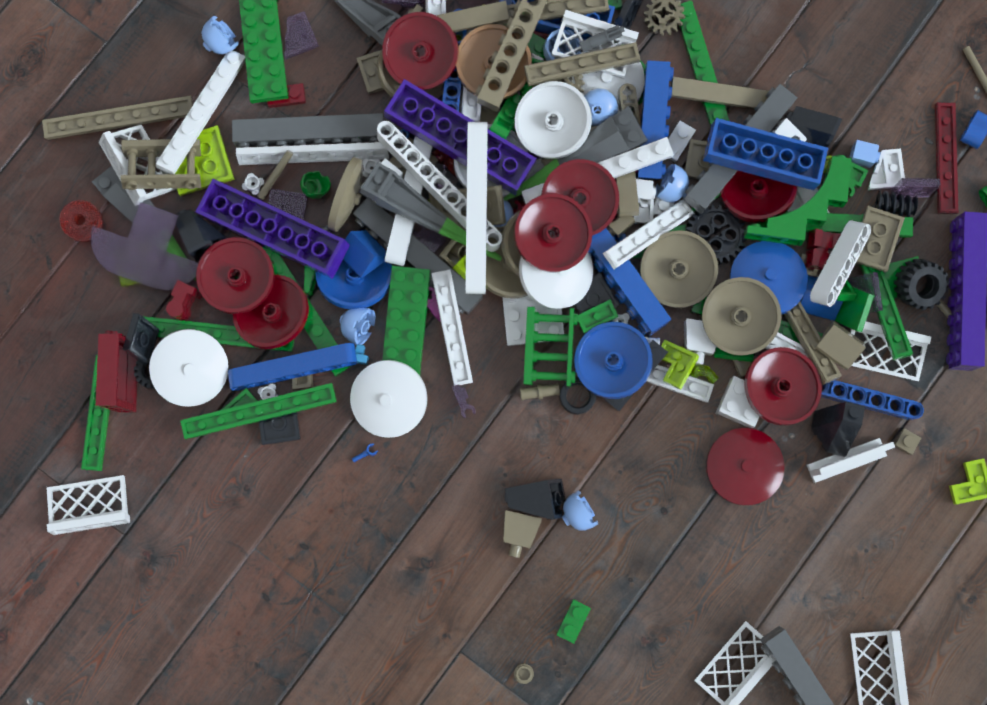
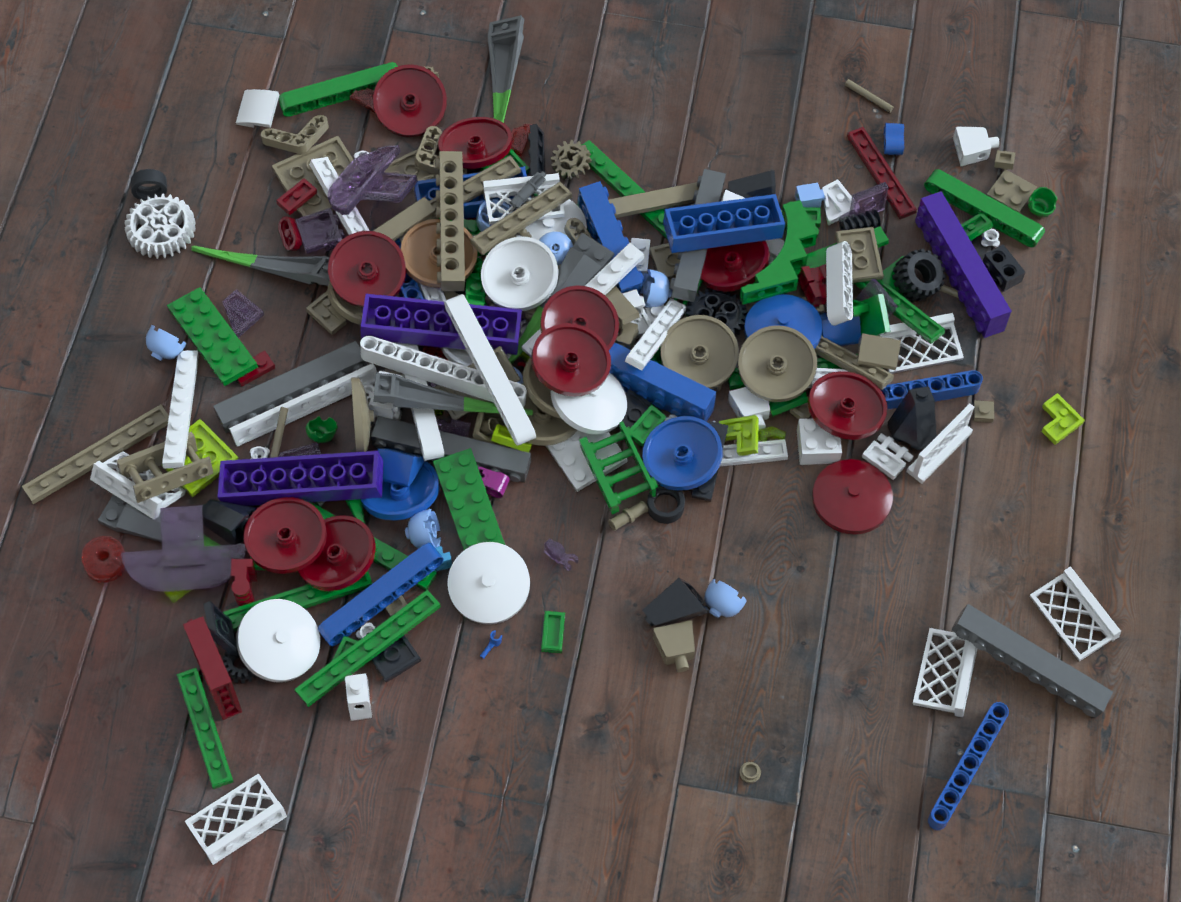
camera: 30 degrees left, 20 degrees down
(232, 448) = (358, 694): none -> white torso
(423, 467) = (553, 632): none -> green tile
(452, 327) = (516, 492): white tile -> none
(573, 621) = (771, 703): green plate -> none
(792, 447) = (886, 460): none -> white plate

